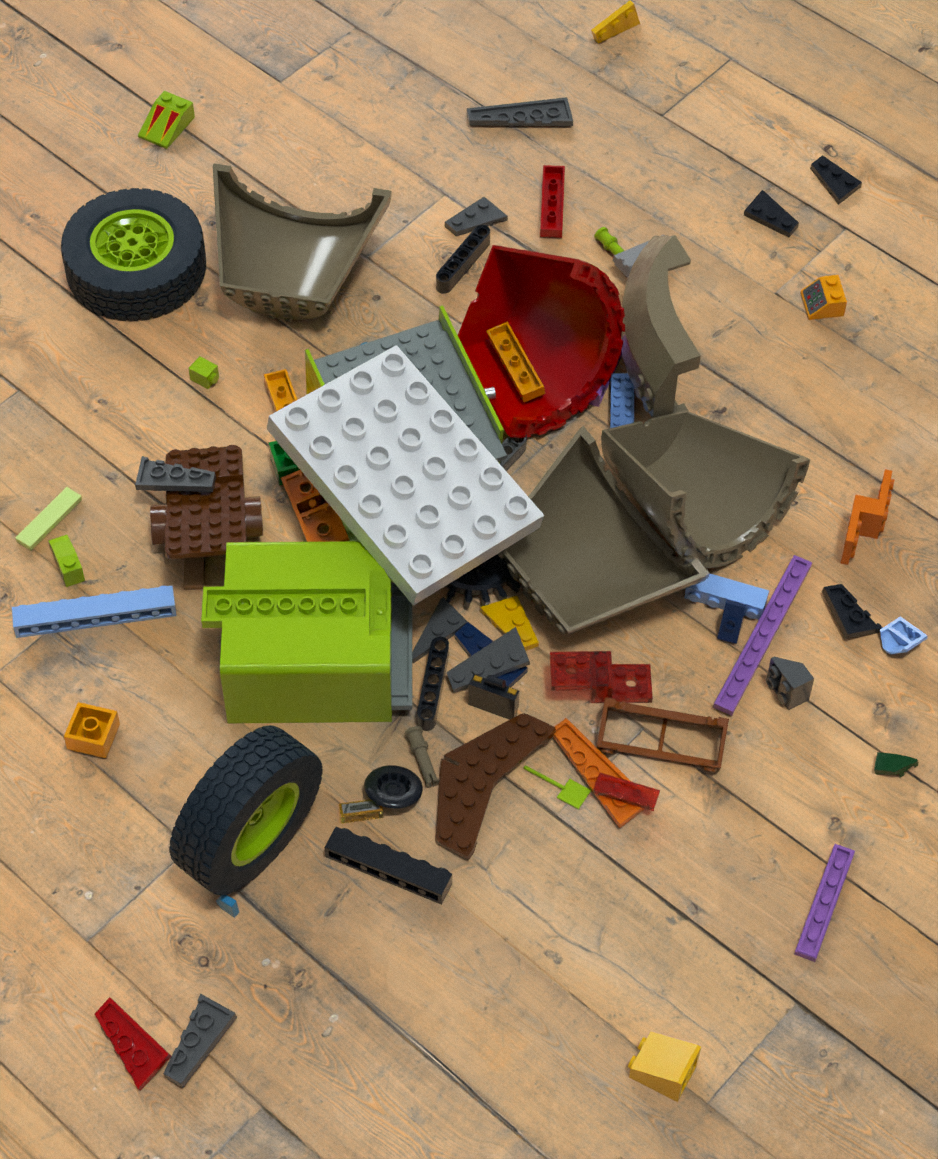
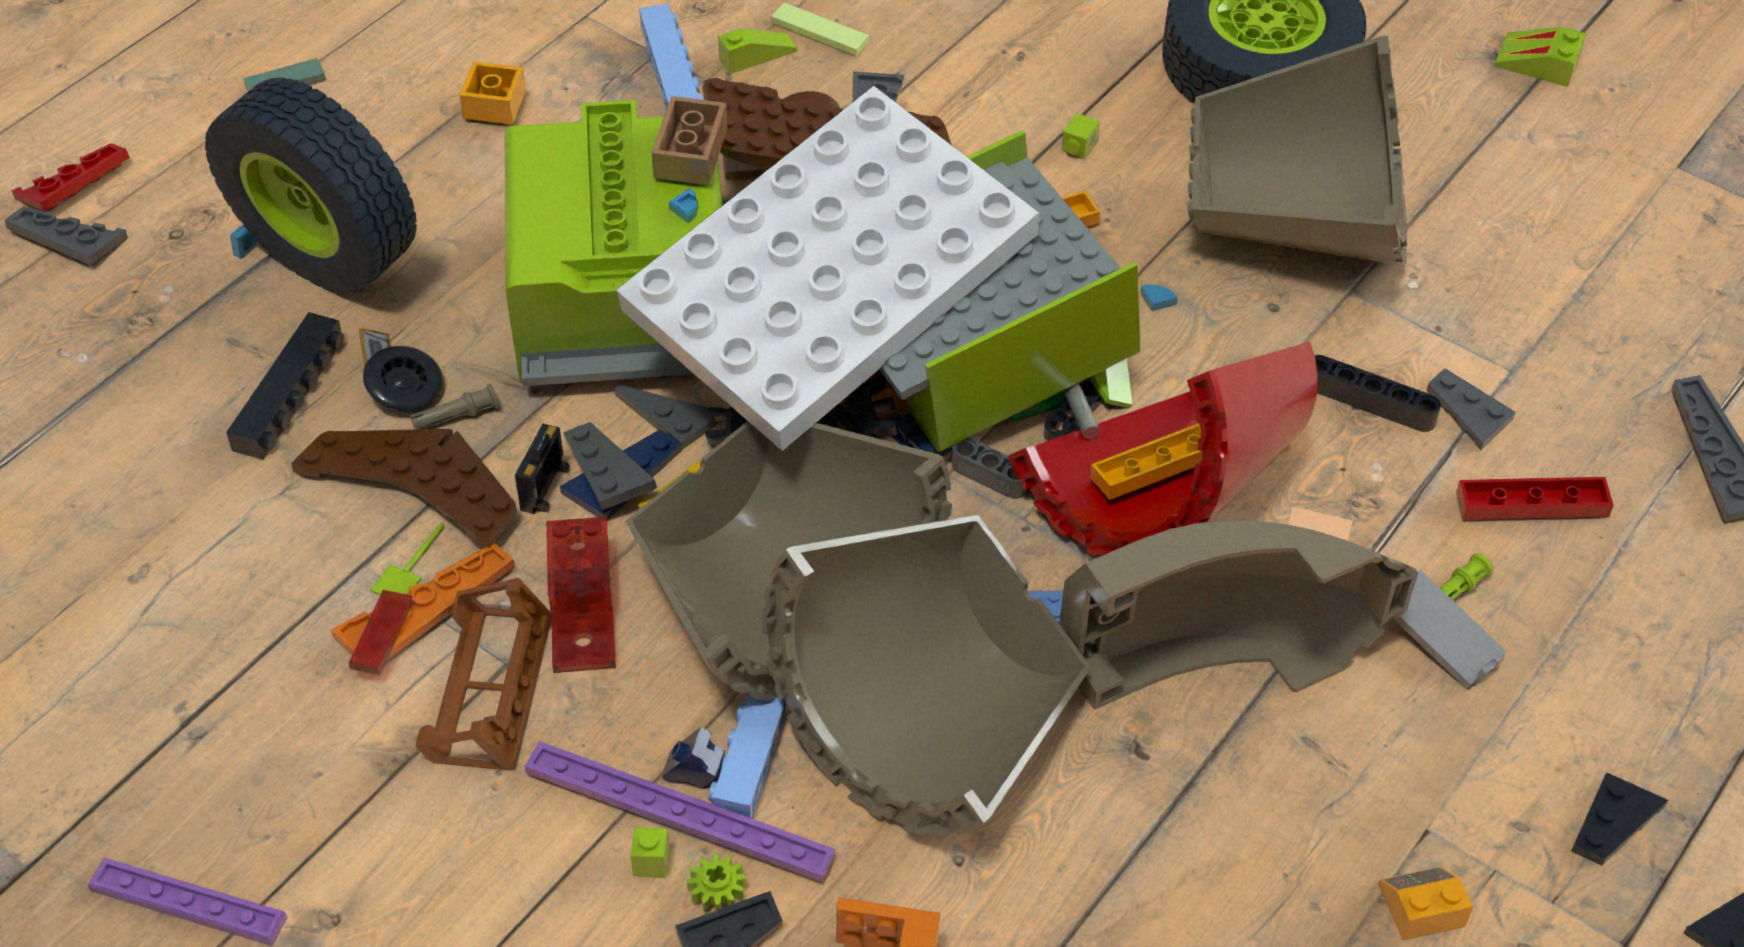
camera: 85 degrees right, 5 degrees down
(31, 890) = (306, 72): none -> sand green tile
(270, 545) = (689, 140): none -> medium nougat brick
(326, 558) = (685, 205): none -> dark azure tile
(433, 691) = (572, 408): black beam -> none
(789, 681) = (570, 834): dark grey slope -> none
(796, 646) = (650, 852): none -> lime brick
(815, 615) = (716, 882): none -> lime gear

